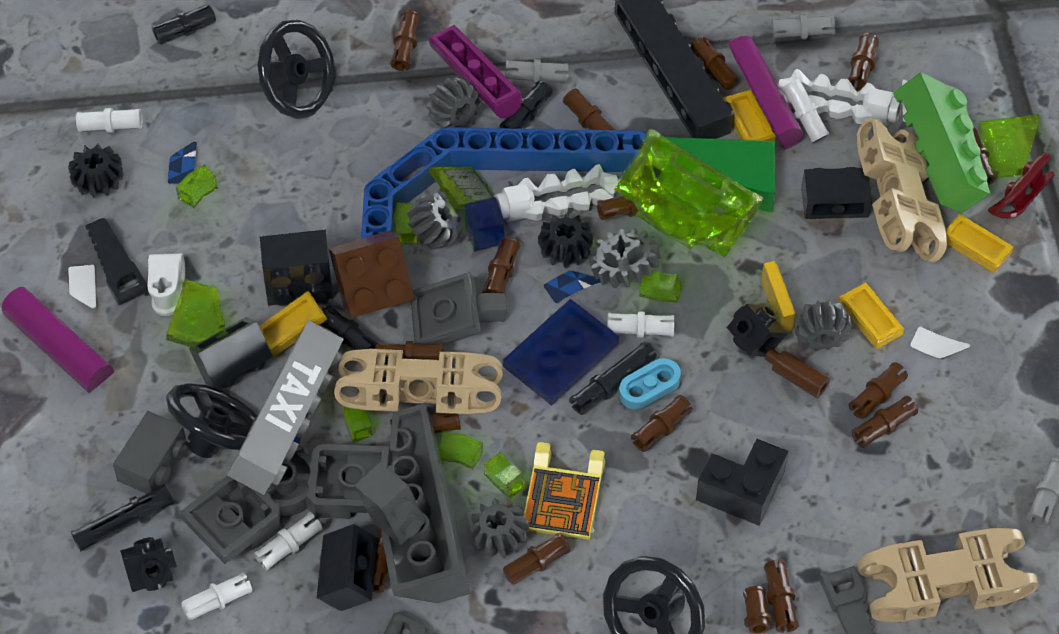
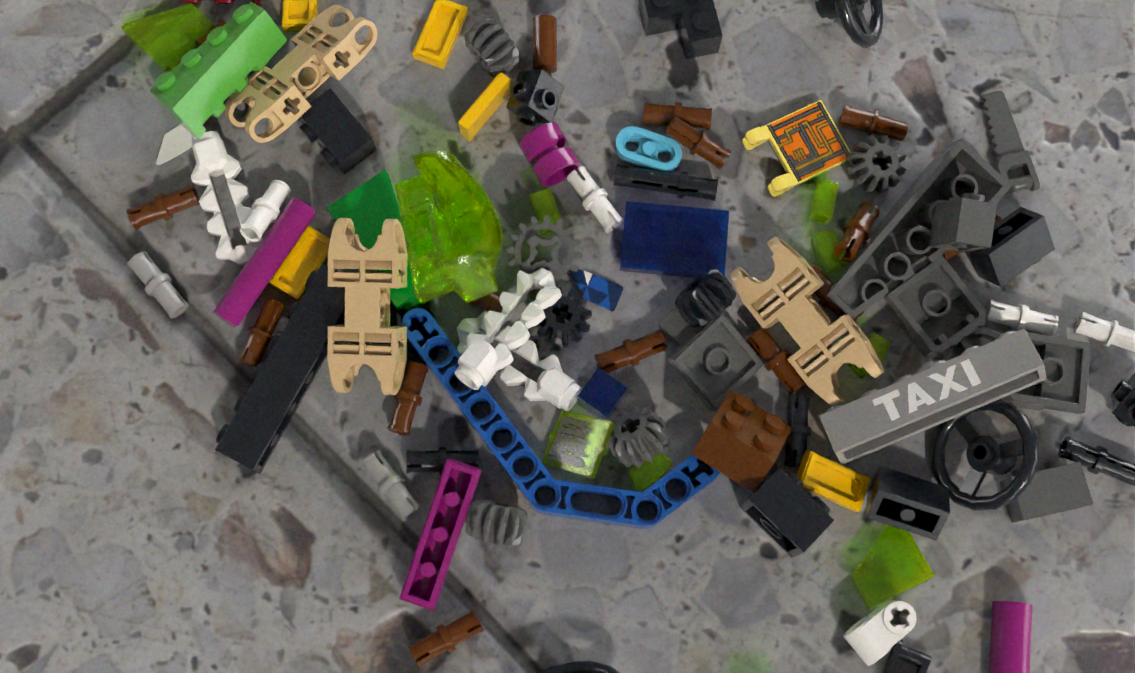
camera: 130 degrees left, 20 degrees up
(457, 470) = (856, 231): none -> reddish brown pin
(495, 326) = (705, 298): none -> black gear
(570, 151) = (480, 359): none -> white sword
(626, 417) = (697, 142): none -> reddish brown axle
(685, 119) = (367, 306): none -> tan piece
(688, 313) = (547, 151): none -> magenta wheel

